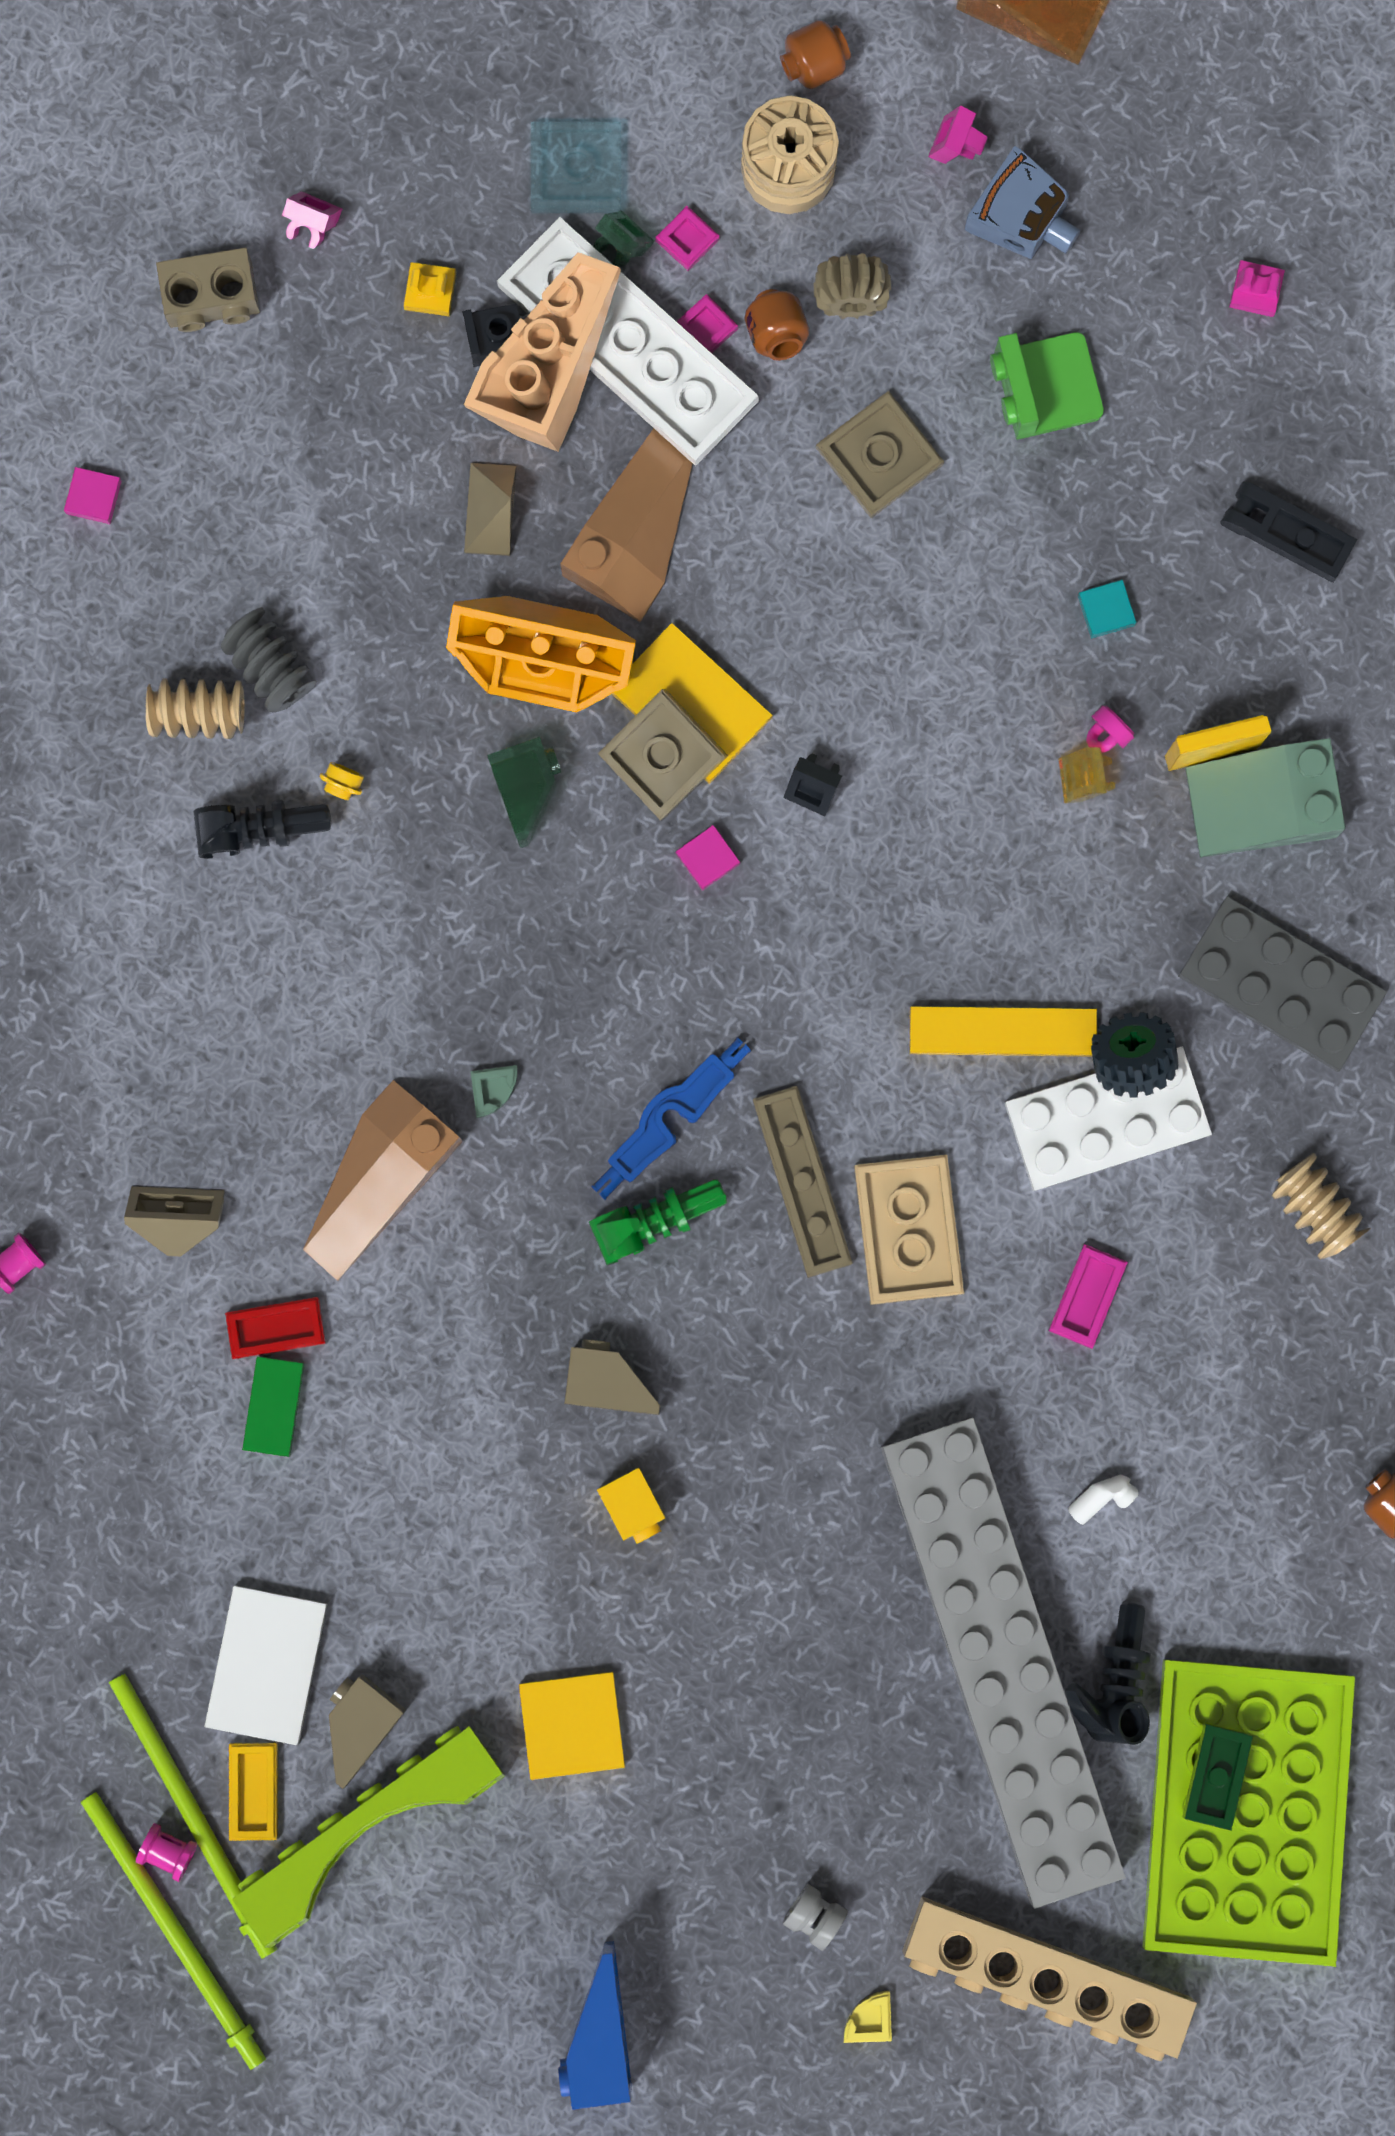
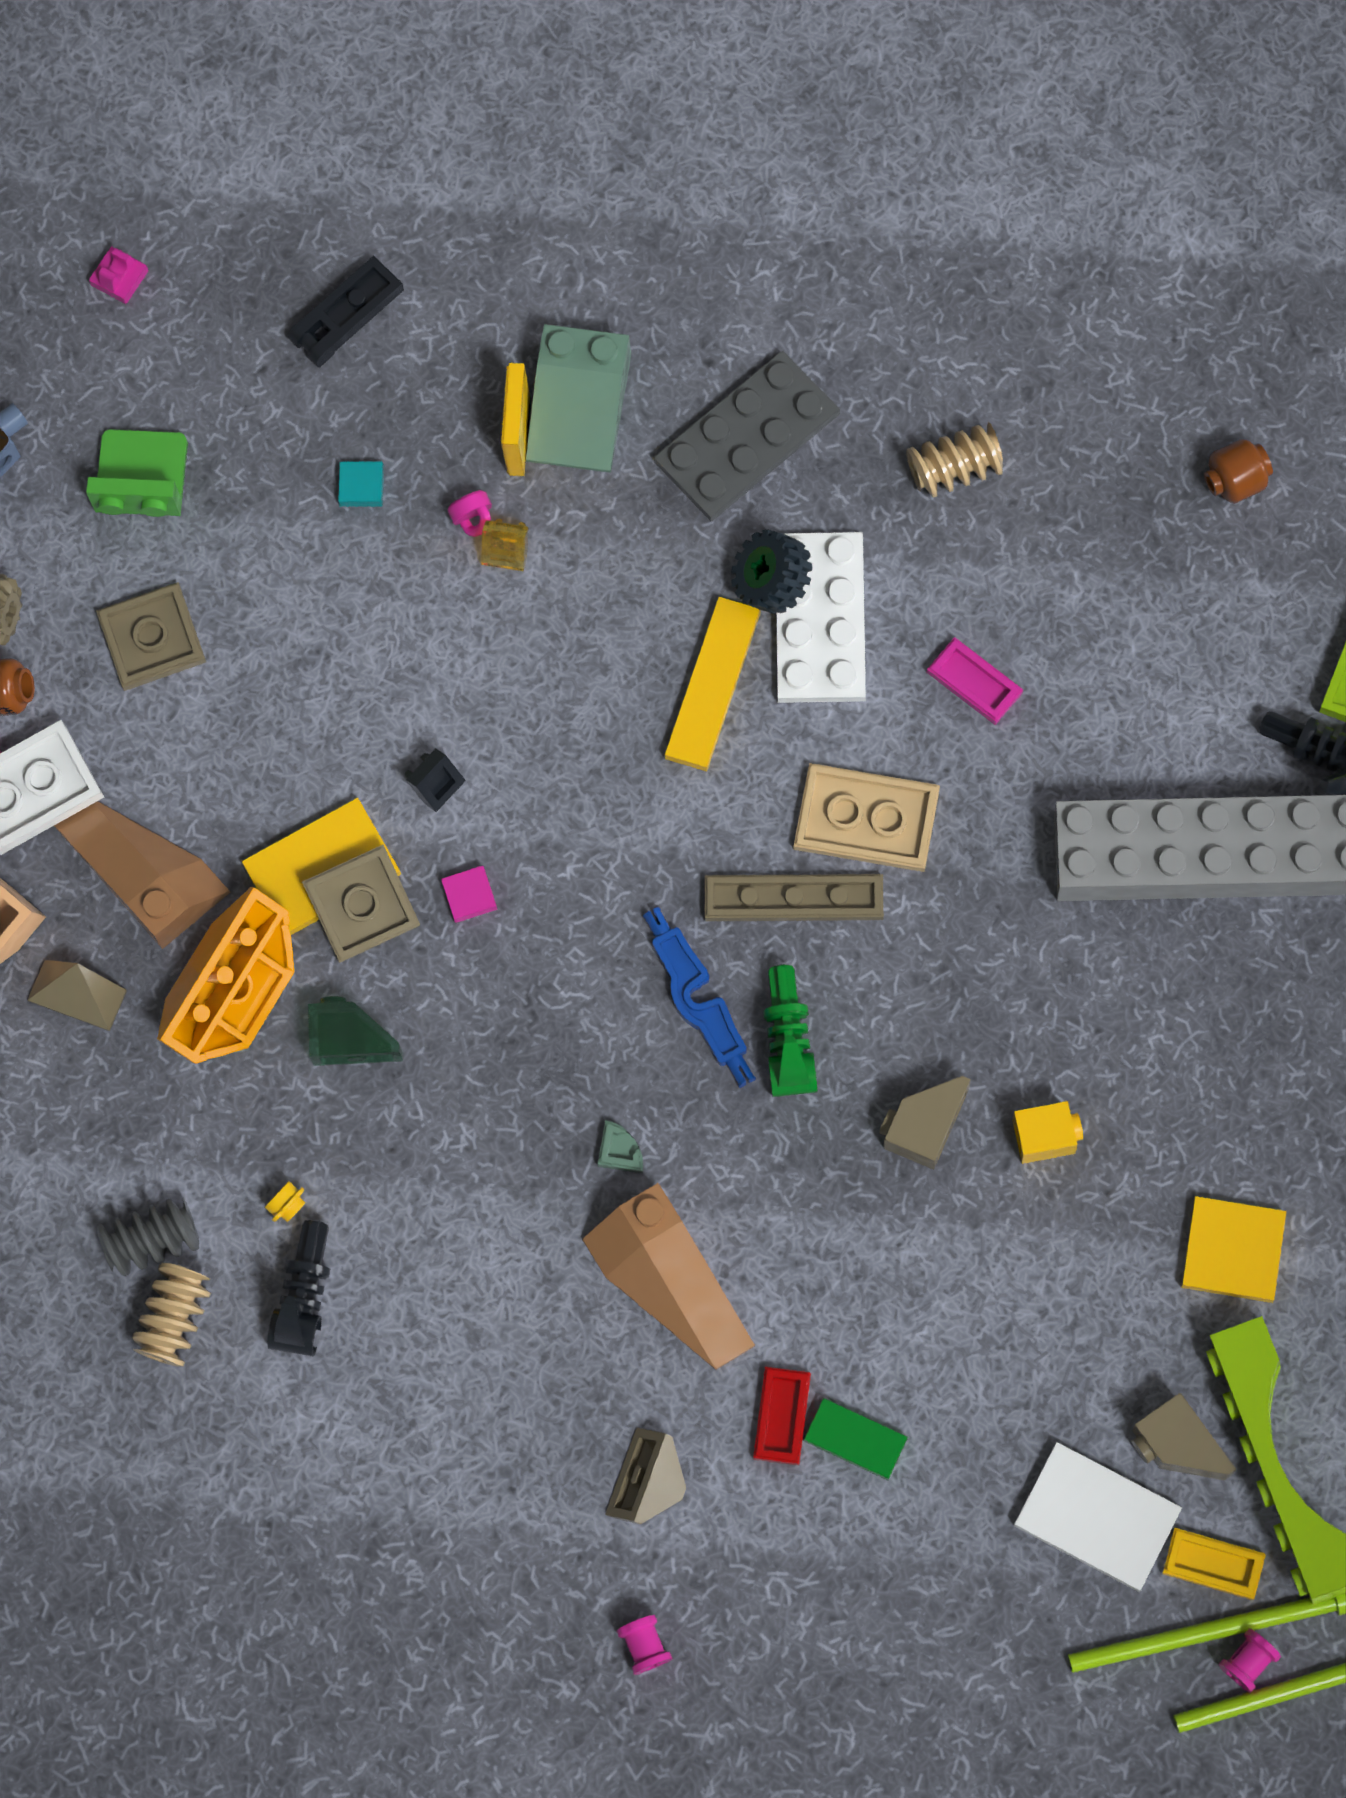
camera: 65 degrees left, 10 degrees down
(1100, 1494) = (1156, 721): white arm -> none

